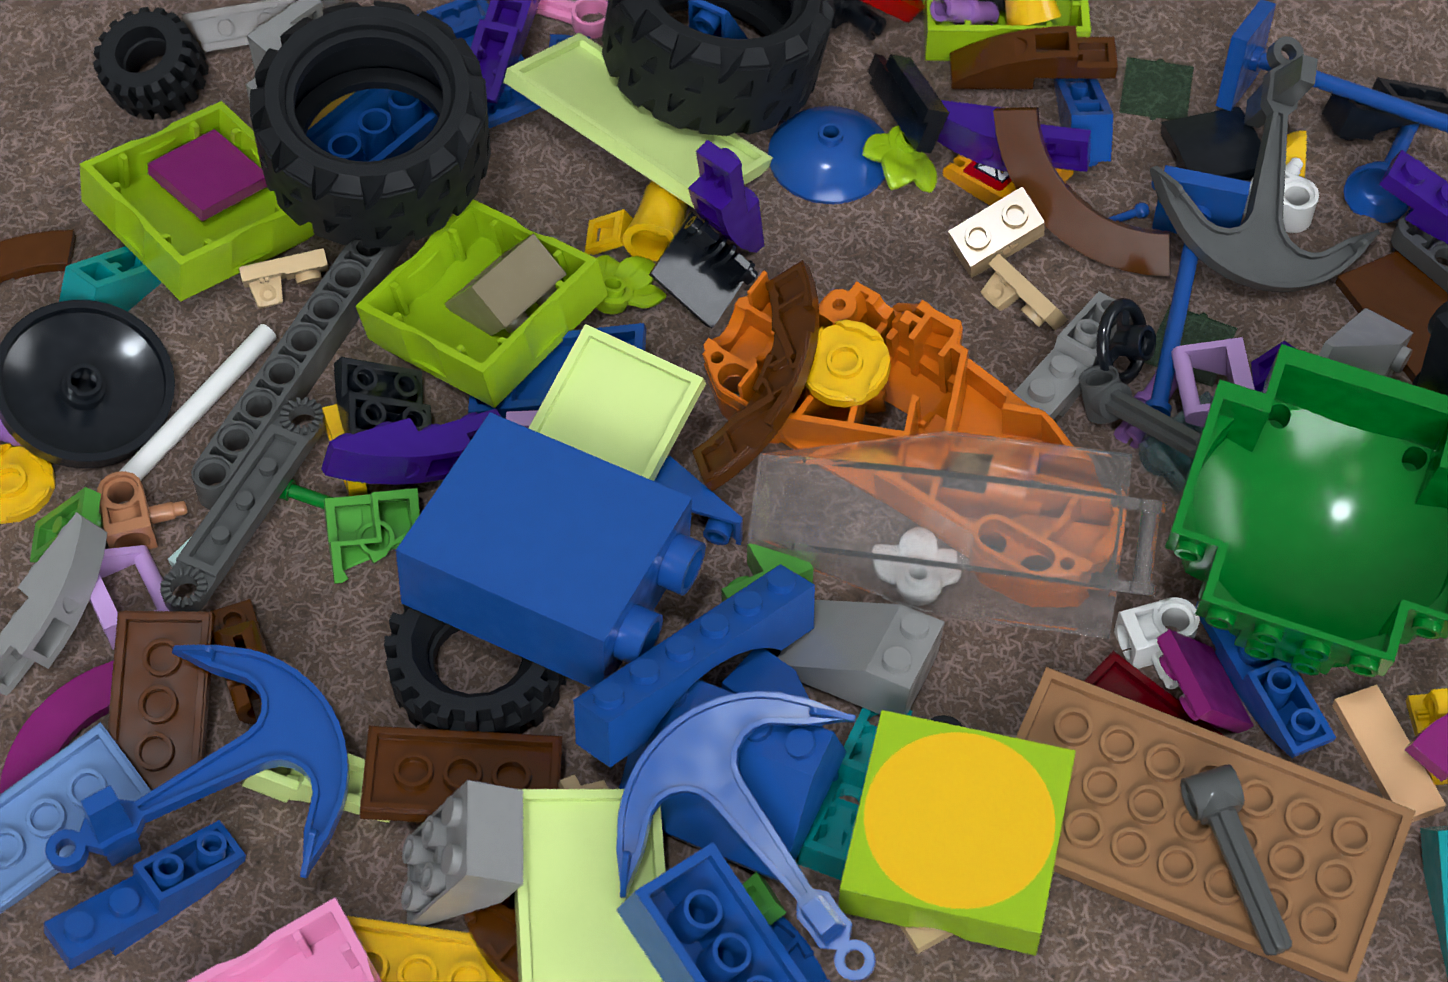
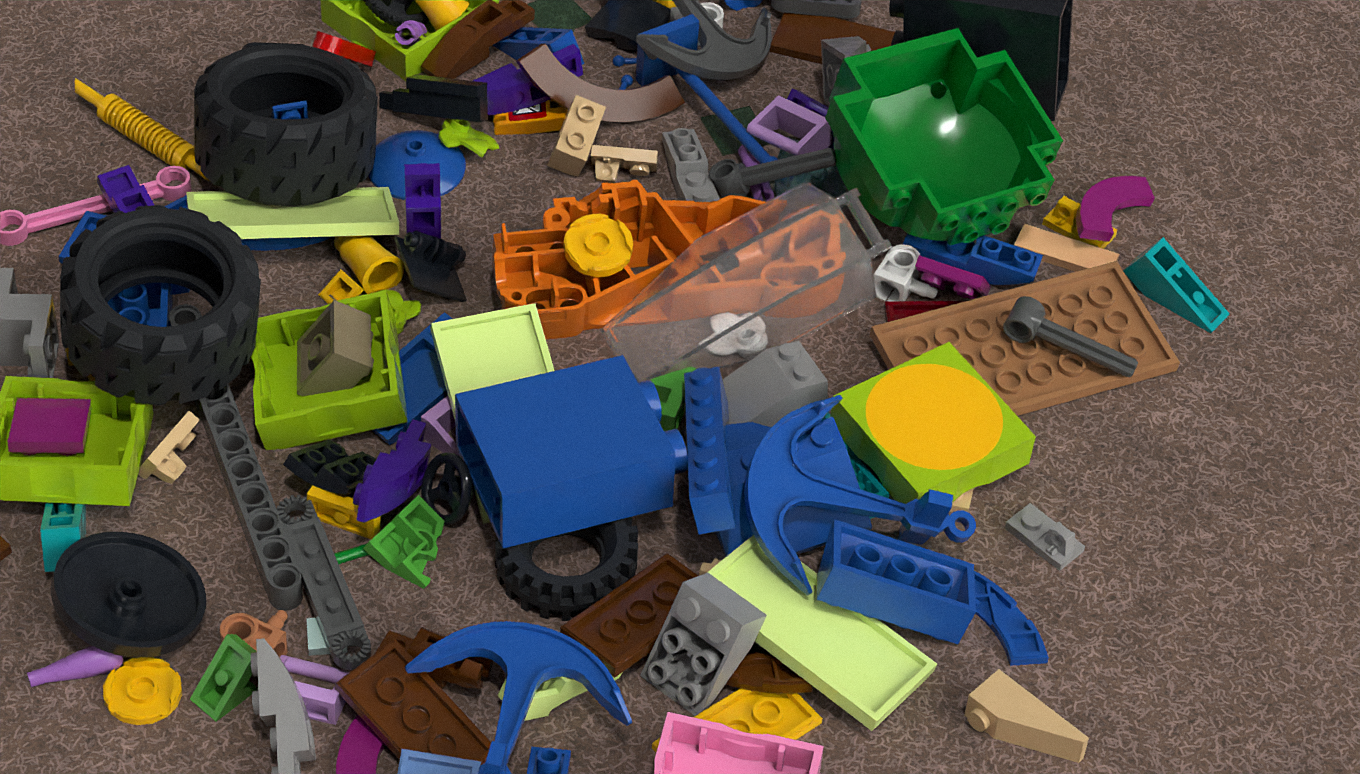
camera: 50 degrees left, 10 degrees down
(200, 402) = (208, 557): white piece -> none
(778, 385) = (576, 279): reddish brown tile -> none
(1133, 341) = (712, 142): black piece -> none

